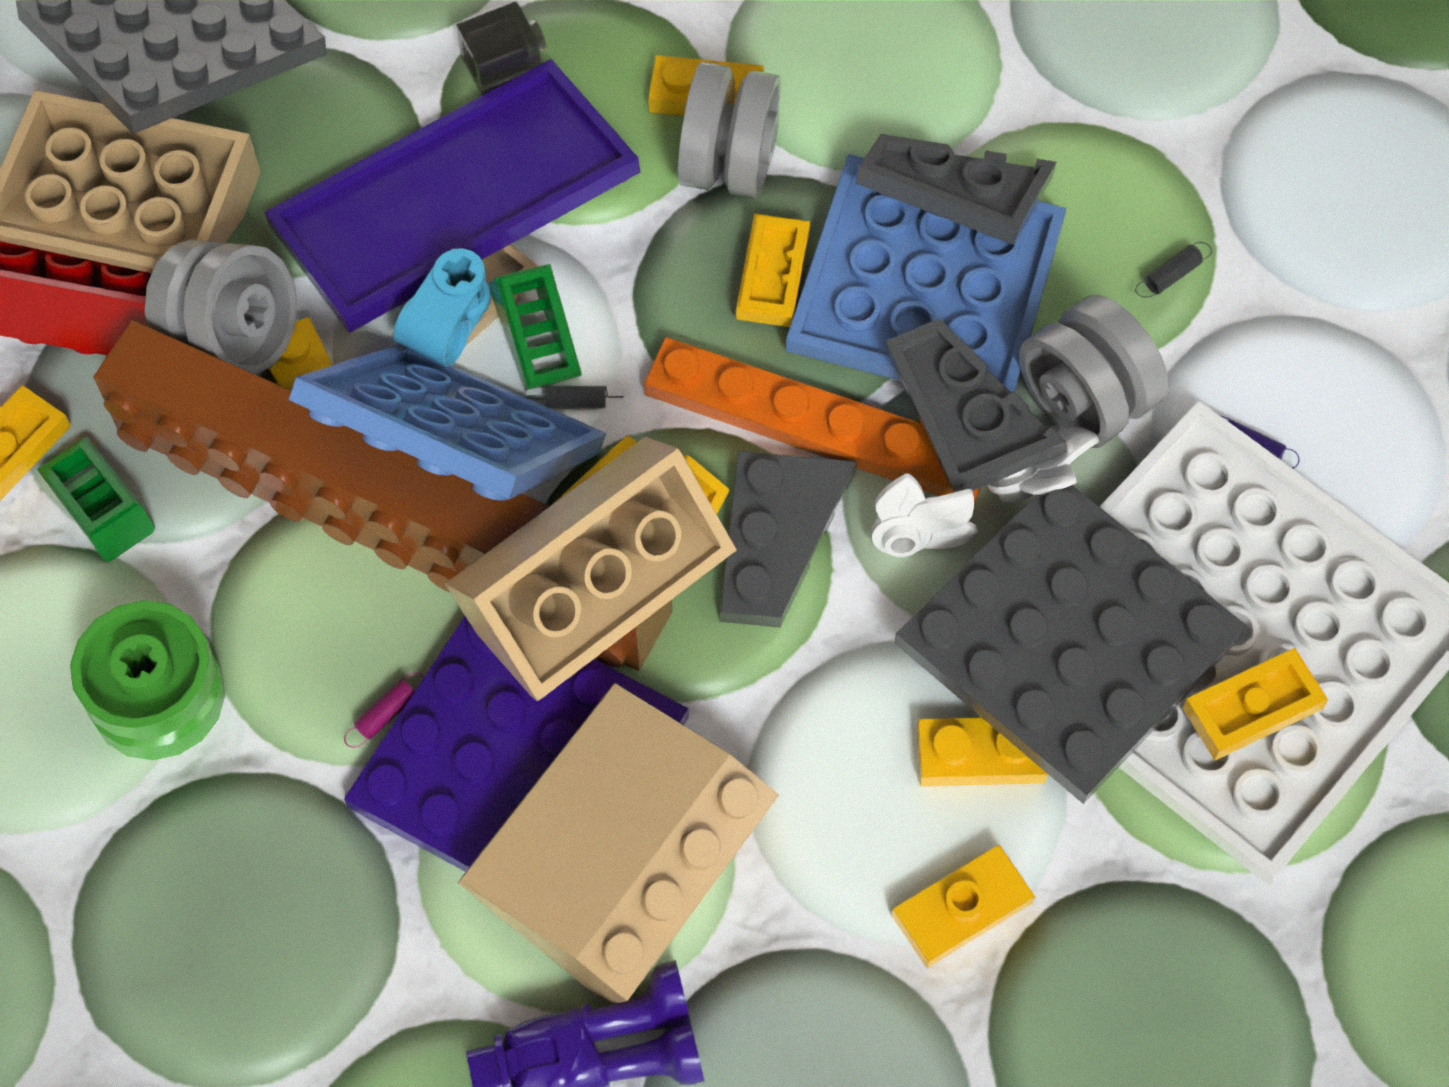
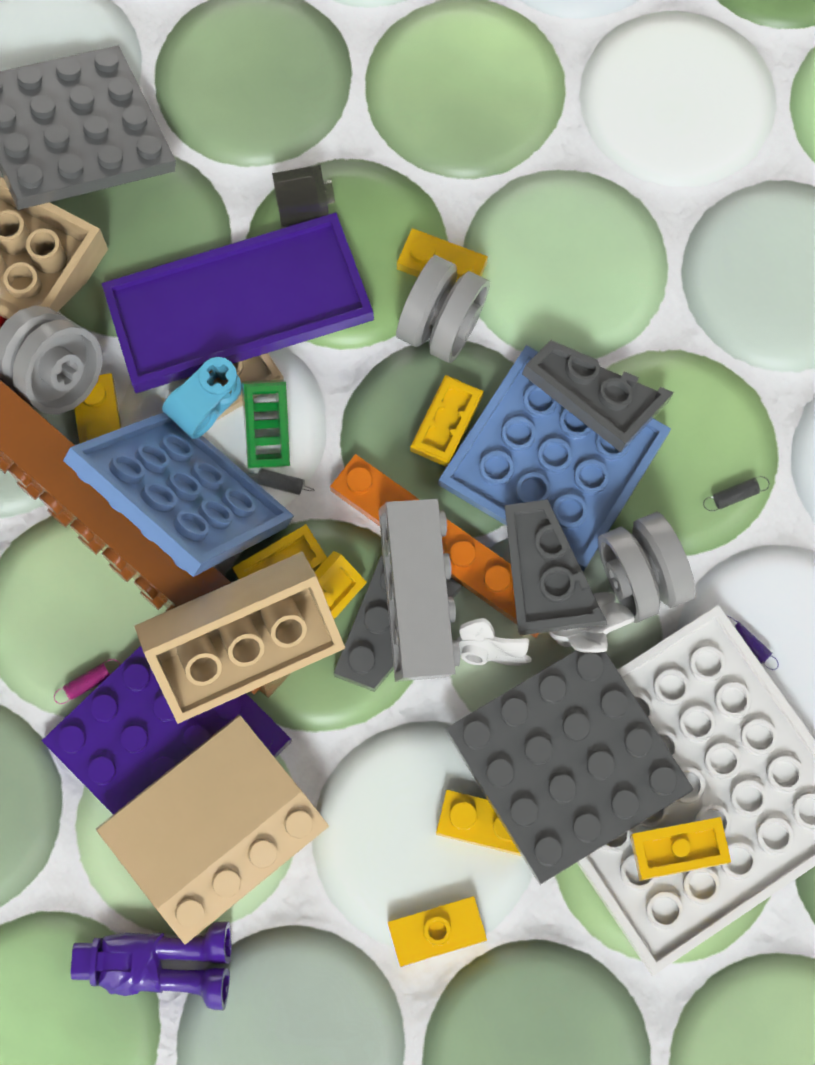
camera: 15 degrees right, 10 degrees up
(804, 473) = (417, 590): none -> light grey brick

